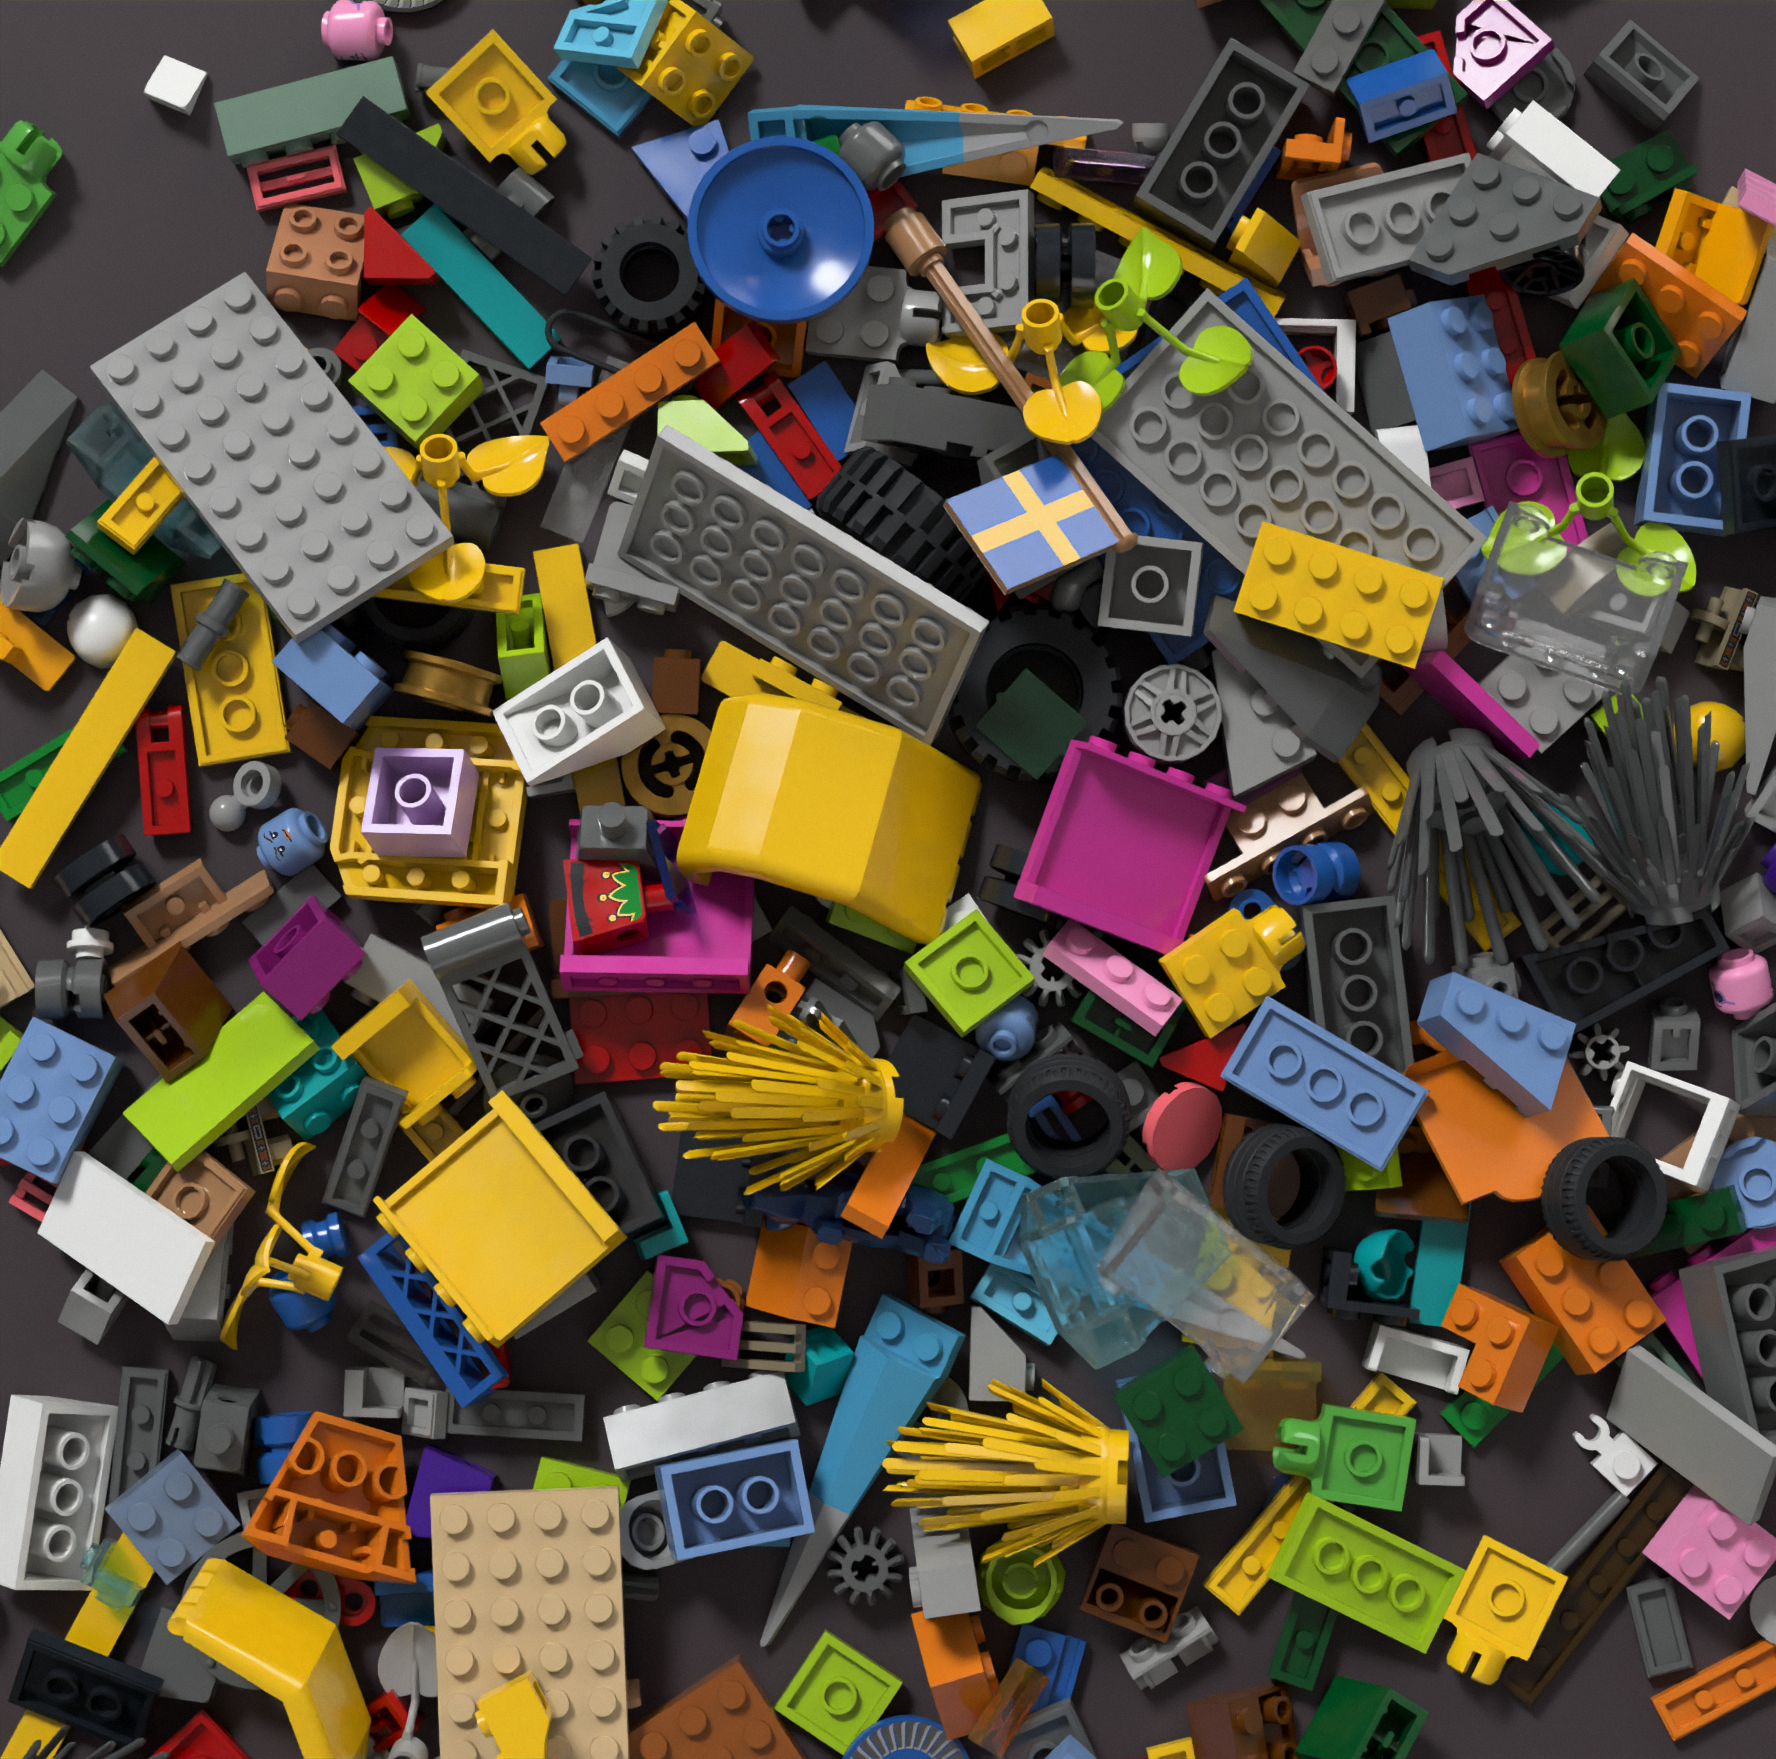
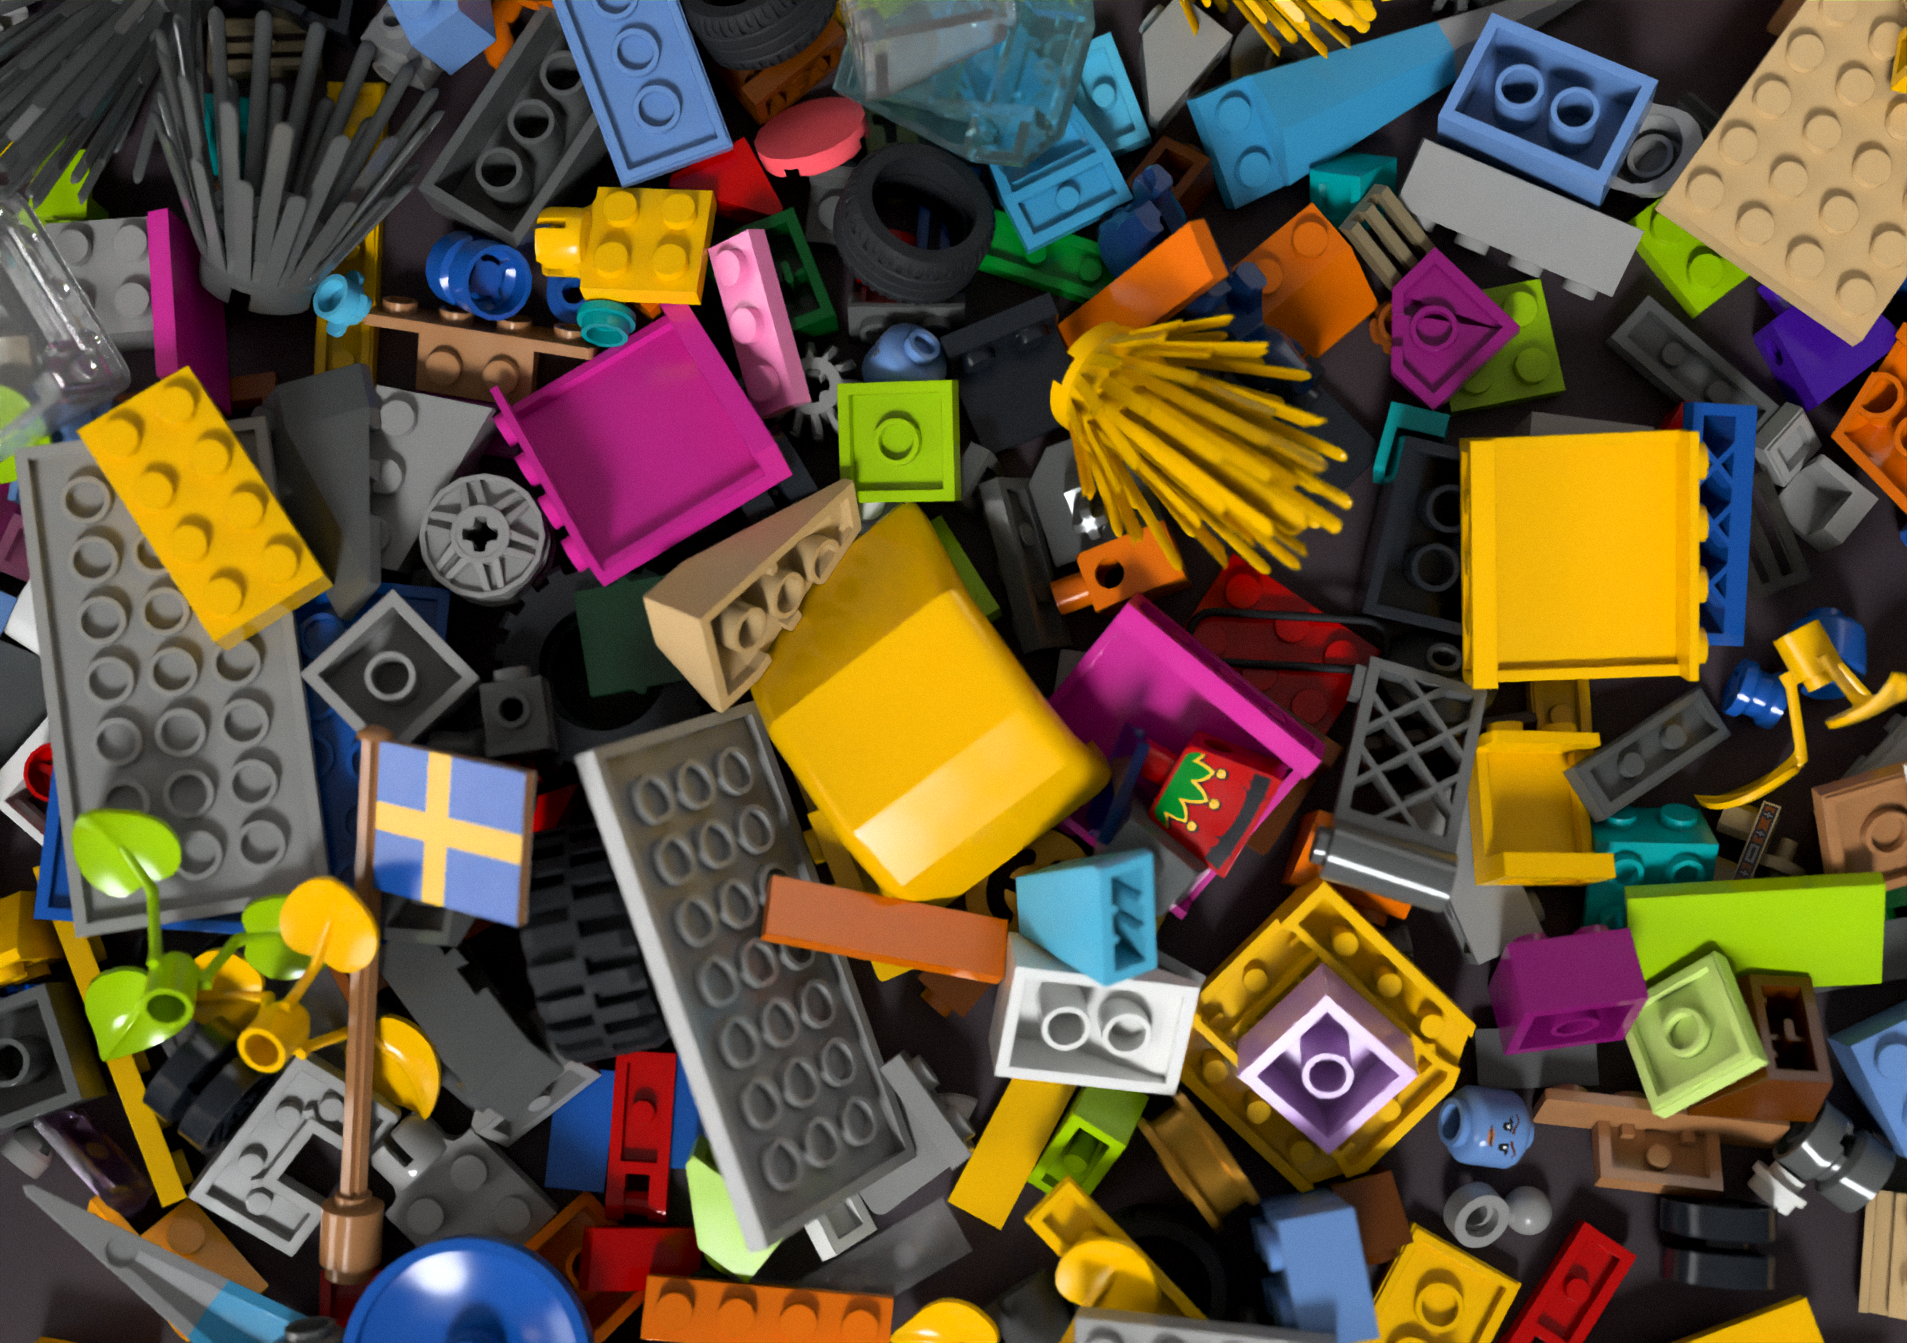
camera: 130 degrees left, 5 degrees down
(213, 990) = (1693, 1036): none -> yellowish green plate
(623, 774) = (1093, 913): none -> medium azure slope
(703, 1012) = (1295, 616): none -> black piece
(739, 670) = (884, 929): none -> orange tile
(987, 794) = (734, 598): none -> tan wedge
(1038, 621) = (535, 730): none -> dark grey brick
(1211, 905) = (606, 322): none -> teal plate
(1396, 785) = (341, 301): none -> medium azure plate

